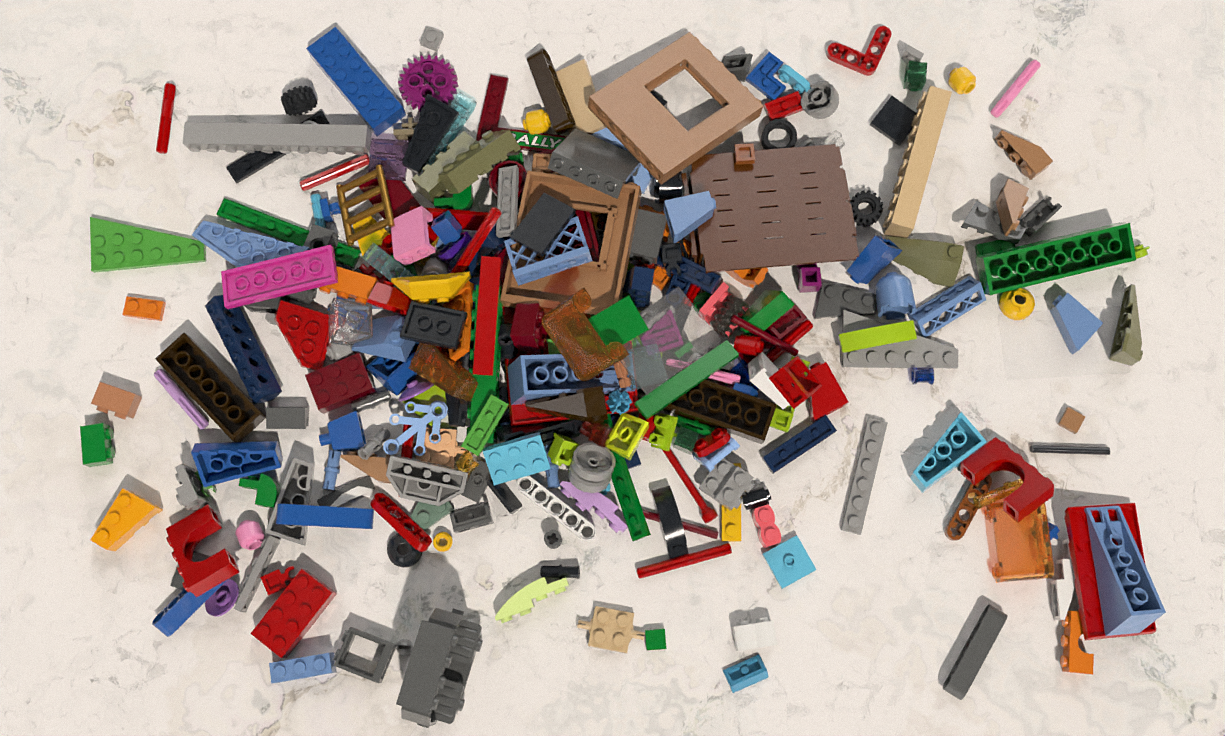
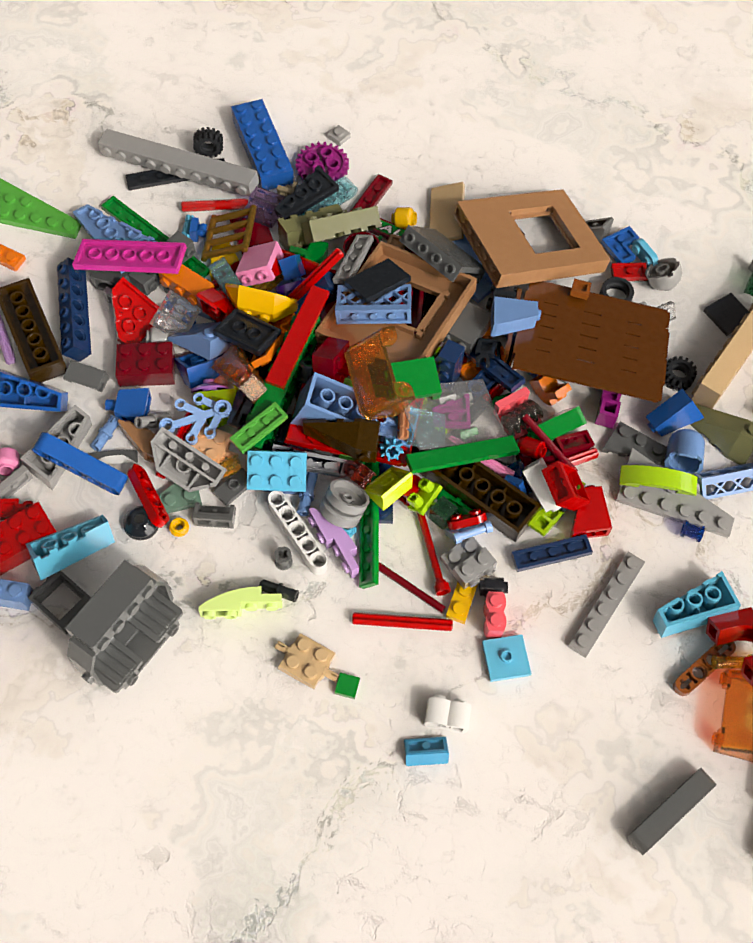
camera: 15 degrees right, 15 degrees down
(165, 118) = (93, 126): red axle -> none
(267, 489) = (34, 424): green brick -> none
(350, 602) = (69, 545): none -> medium azure wedge
(371, 401) = (166, 388): dark grey pin -> none
(505, 496) = (253, 506): black slope -> none
(551, 91) = (425, 197): dark brown beam -> none
(562, 450) = (327, 475): lime brick -> none
(670, 522) = (401, 581): black arch -> none
(867, 58) = (715, 258): red beam -> none

